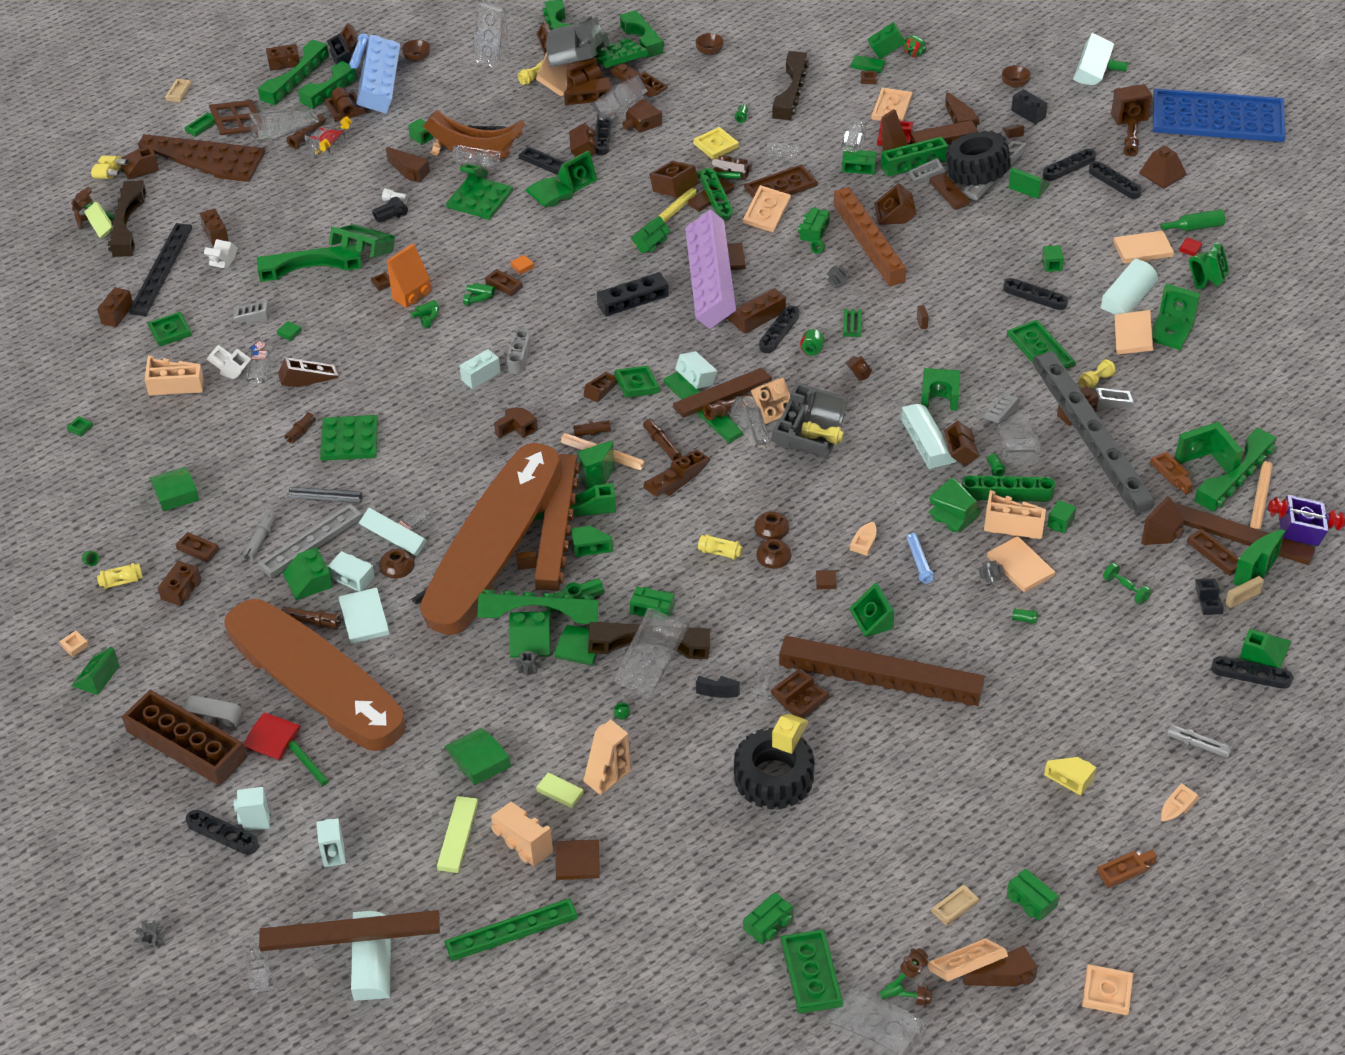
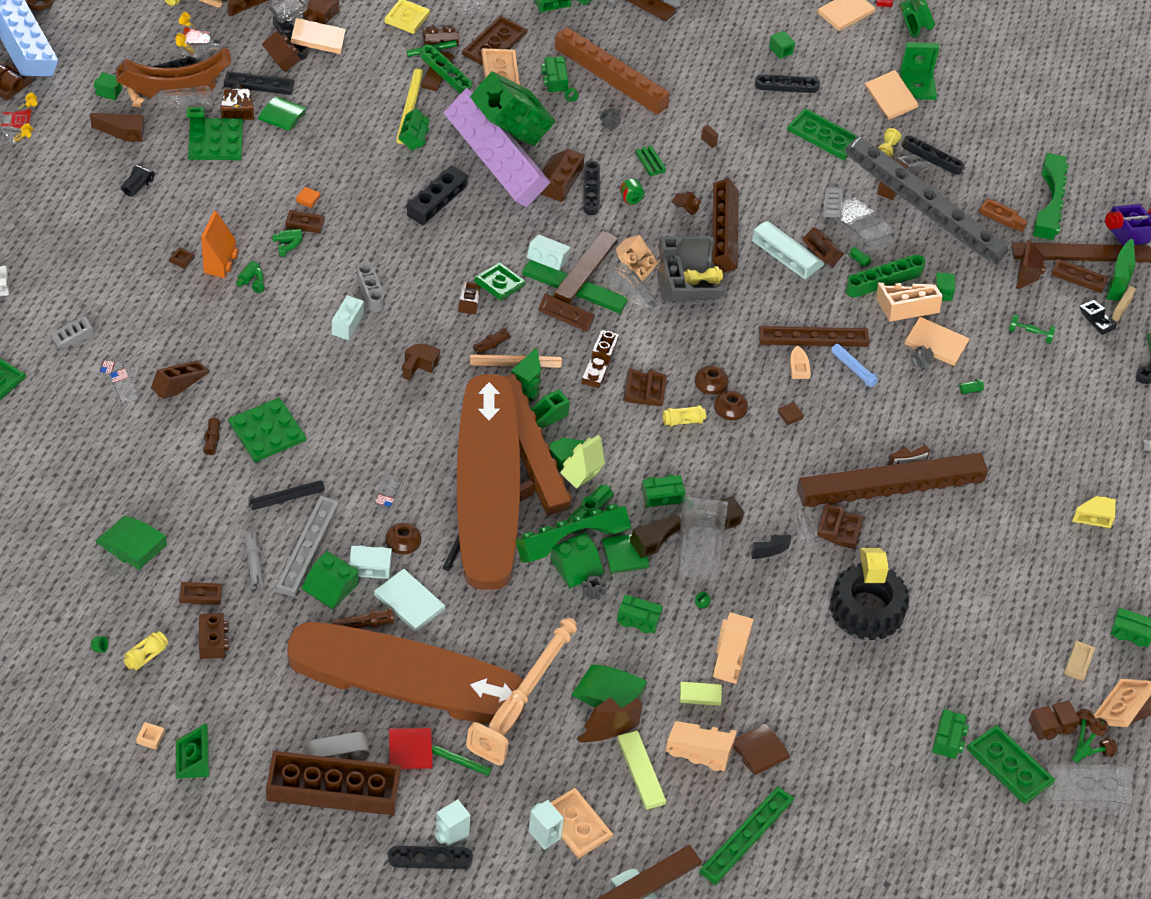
camera: 35 degrees left, 5 degrees up
(172, 378) = (47, 429): light nougat wedge -> none
(230, 365) = (97, 395): white brick -> none
(277, 265) = (125, 245): green arch -> none
(289, 331) = (125, 340): green tile -> none
(330, 750) = (491, 741): none -> light nougat piece
(367, 856) = (581, 825): none -> light nougat tile
(380, 242) = (138, 216): green window -> none
(388, 194) = (128, 164): white pin -> none
(392, 532) = (380, 508): light aqua tile -> none
(450, 780) = (610, 720): none -> reddish brown slope
(514, 112) = (195, 41): none -> torso
(515, 173) = (237, 104): none -> torso
(552, 700) = (639, 614): none -> green brick
(578, 172) = (300, 86): green slope -> none
(591, 551) = (585, 462): none -> yellowish green slope
(624, 138) = (318, 36): none -> light nougat tile
(657, 434) = (555, 327): reddish brown pin -> none
(674, 178) = (398, 65): reddish brown brick -> none
(676, 425) = (566, 312): none -> reddish brown plate
(703, 511) = (644, 387): none -> reddish brown slope
(720, 408) = (598, 281): reddish brown pin -> none
(740, 237) = (512, 108): none -> green piece
(871, 948) = (1049, 724): none -> reddish brown piece
(873, 612) = (852, 428): green slope -> none
(878, 396) = (725, 225): none -> reddish brown brick
(895, 206) = (614, 34): reddish brown slope -> none
(897, 519) = (813, 336): none -> reddish brown plate
(906, 652) = (906, 456): none -> reddish brown slope
(941, 384) = (771, 195): green piece -> none
(954, 506) = (855, 307): green piece -> none
(1129, 288) = (862, 54): light aqua brick -> none
(1138, 397) = (933, 155): none -> black beam
(1208, 440) = (1024, 177): green bracket -> none
(1261, 495) = (1081, 213): light nougat axle -> none

